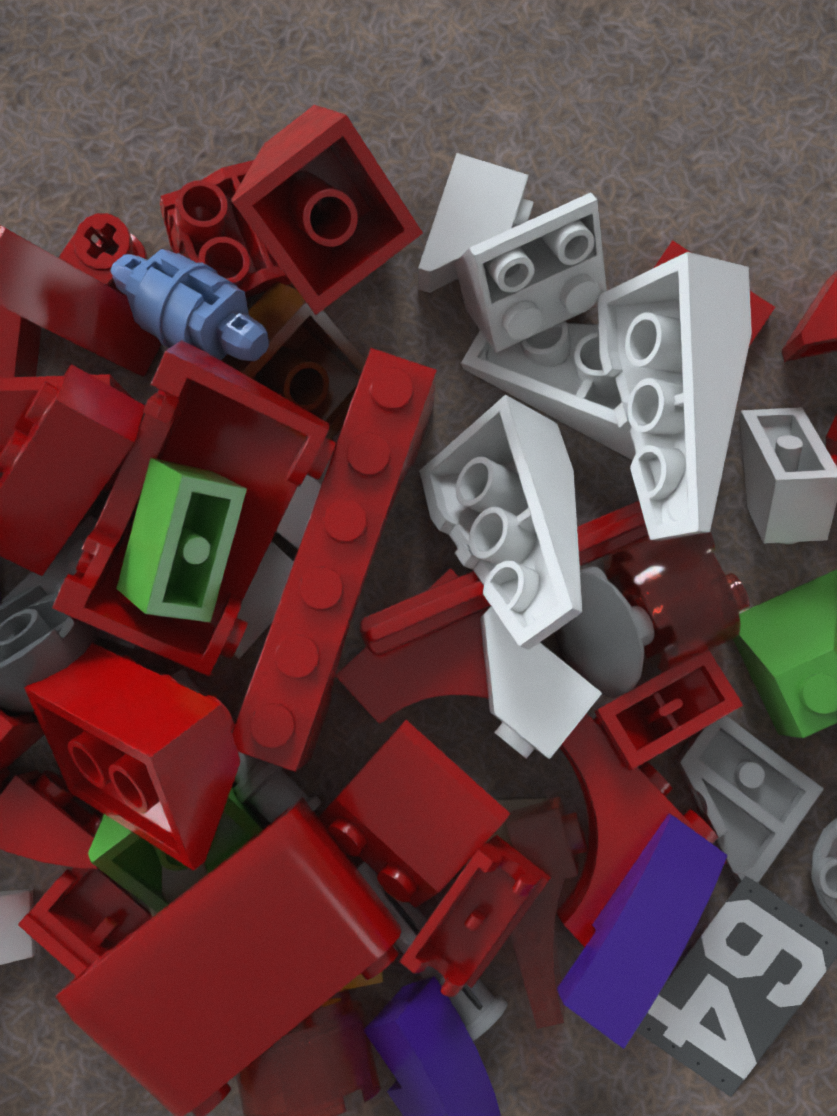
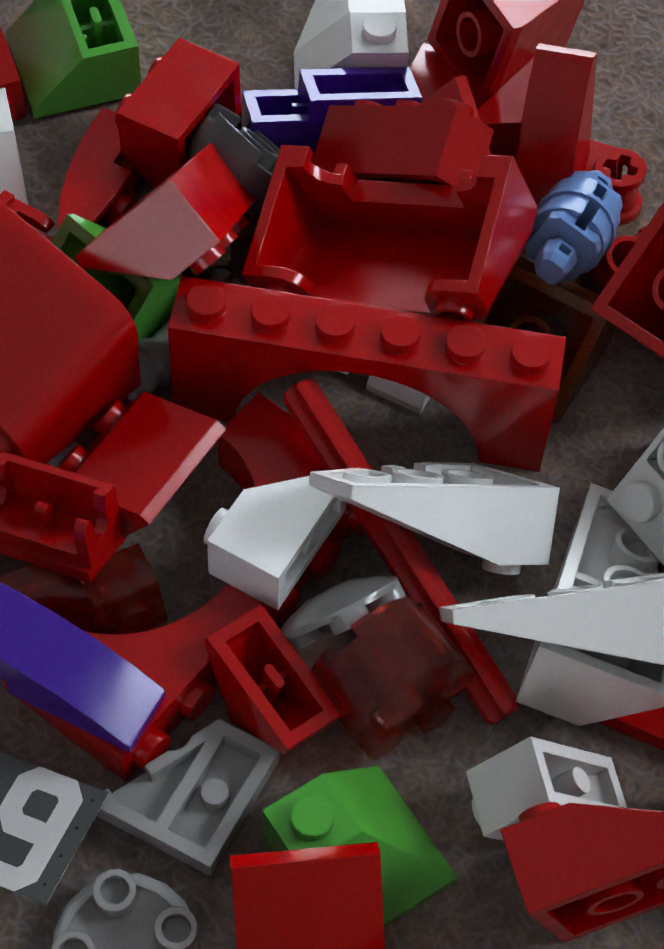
camera: 80 degrees right, 25 degrees down
(180, 541) = (358, 230): bright green brick -> none

